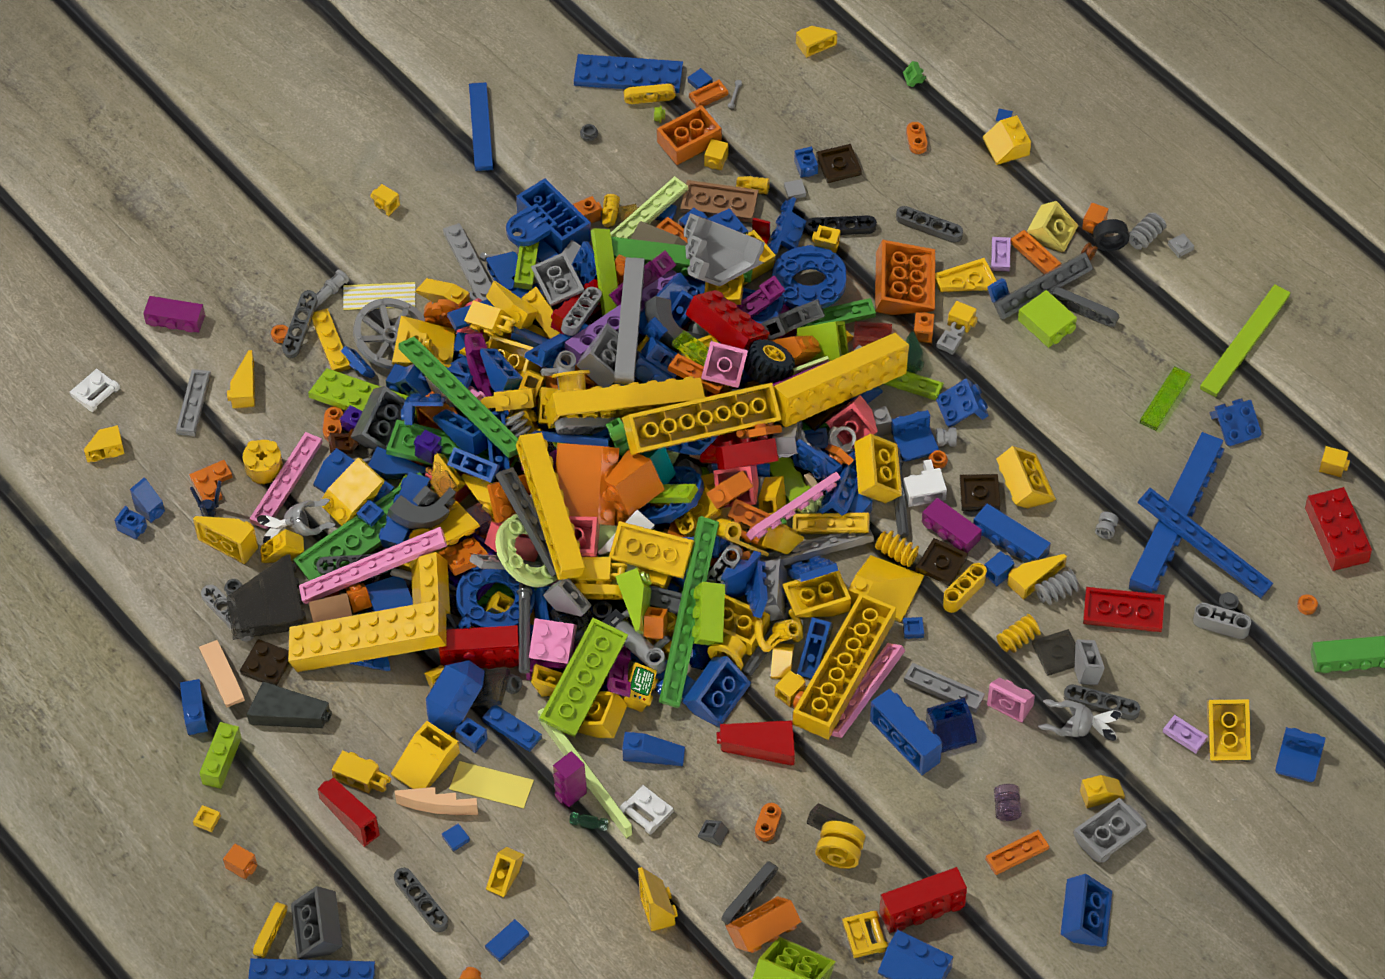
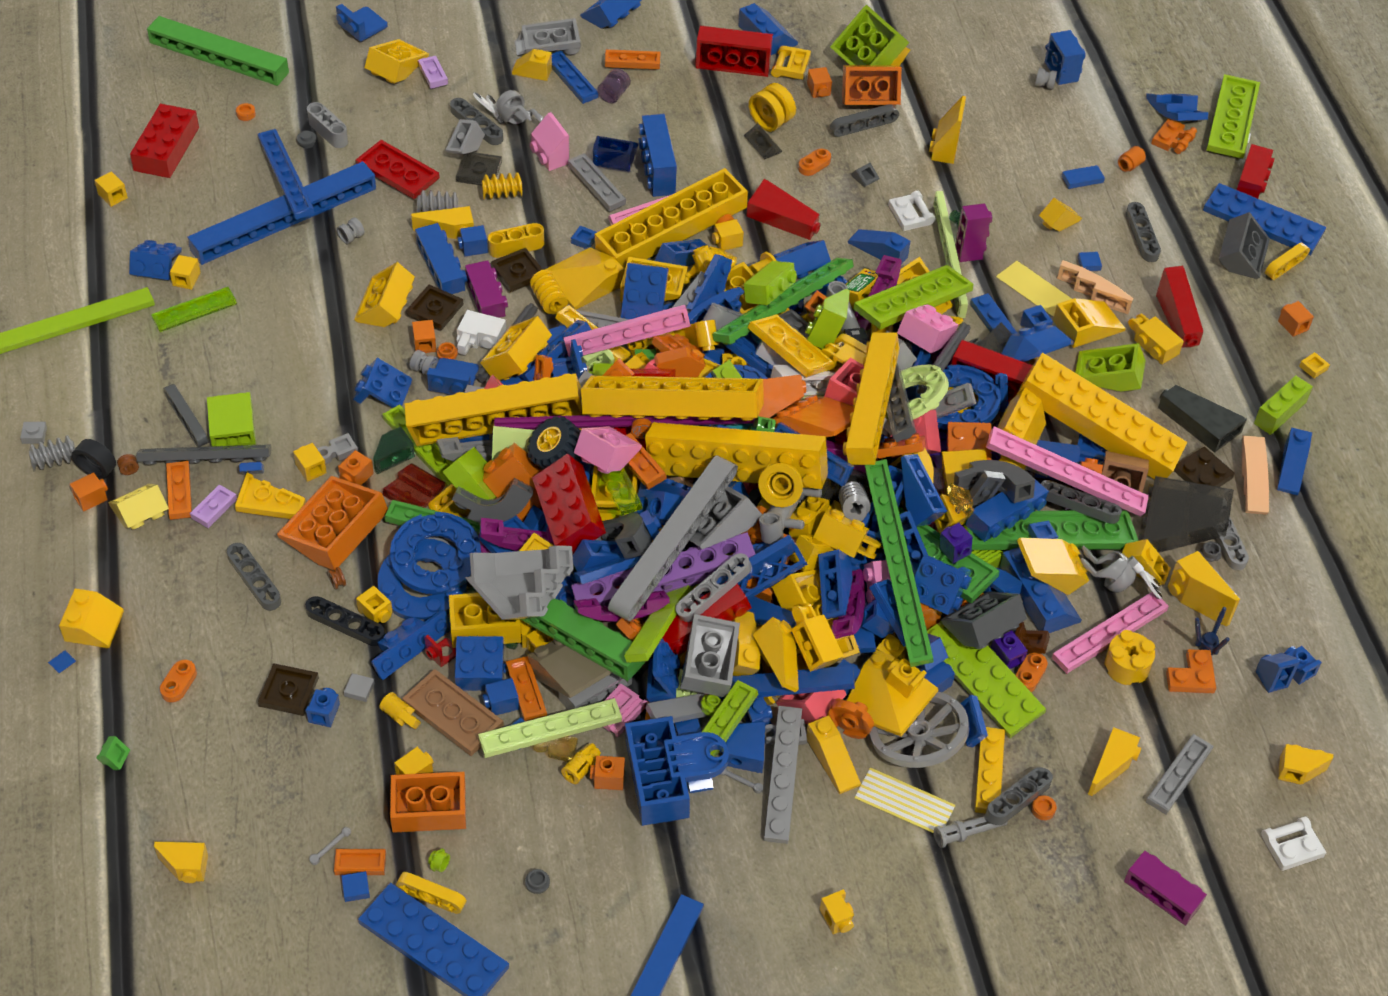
camera: 155 degrees left, 5 degrees down
(384, 719) = (1113, 367): none -> lime slope
(820, 918) = (819, 82): none -> orange brick
(869, 246) = (337, 578): none -> dark orange bush
(965, 459) = (424, 336): none -> orange brick
(1056, 802) = (573, 78): none -> blue tile
(1199, 418) = (185, 272): none -> yellow brick

